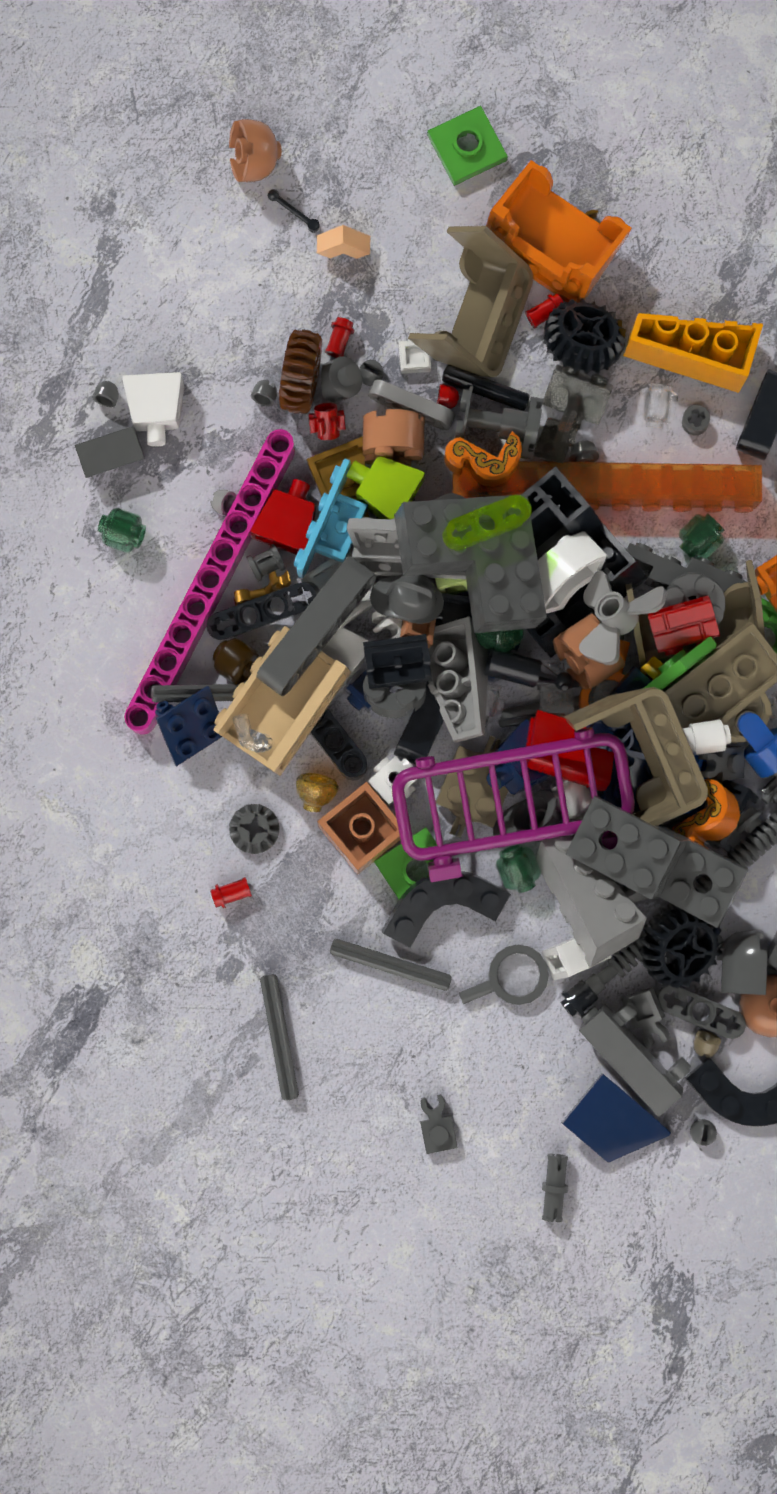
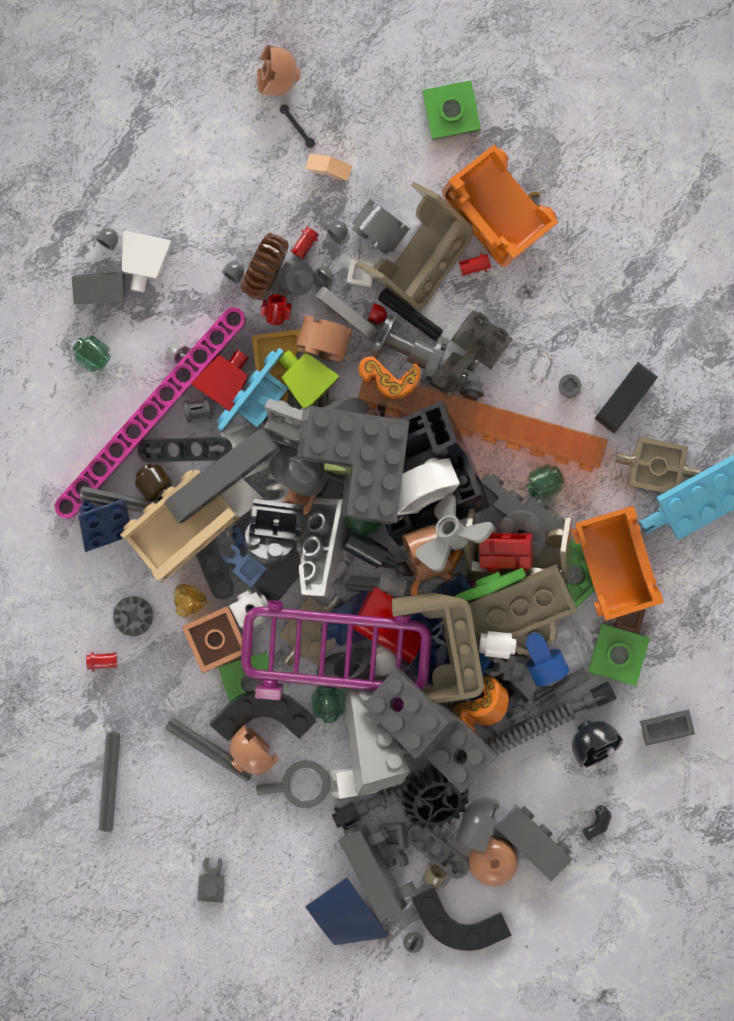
camera: 20 degrees right, 5 degrees up
(251, 738) = (148, 549): clear arm -> none
(276, 583) = (175, 432): pearl gold arm -> none
(373, 315) = (337, 231): none -> dark grey hinge
(376, 732) = (246, 568): none -> medium blue plate
(423, 292) = (380, 226): none -> dark grey brick
(442, 953) = (251, 752): none -> nougat cylinder
(495, 511) = (388, 442): clear neon green beam -> none
(554, 1187) = (287, 952): dark grey pin -> none
(584, 336) = (500, 288): black gear -> none
(651, 668) = (473, 576): yellow hand -> none
(695, 348) = (585, 330): light orange wedge -> none

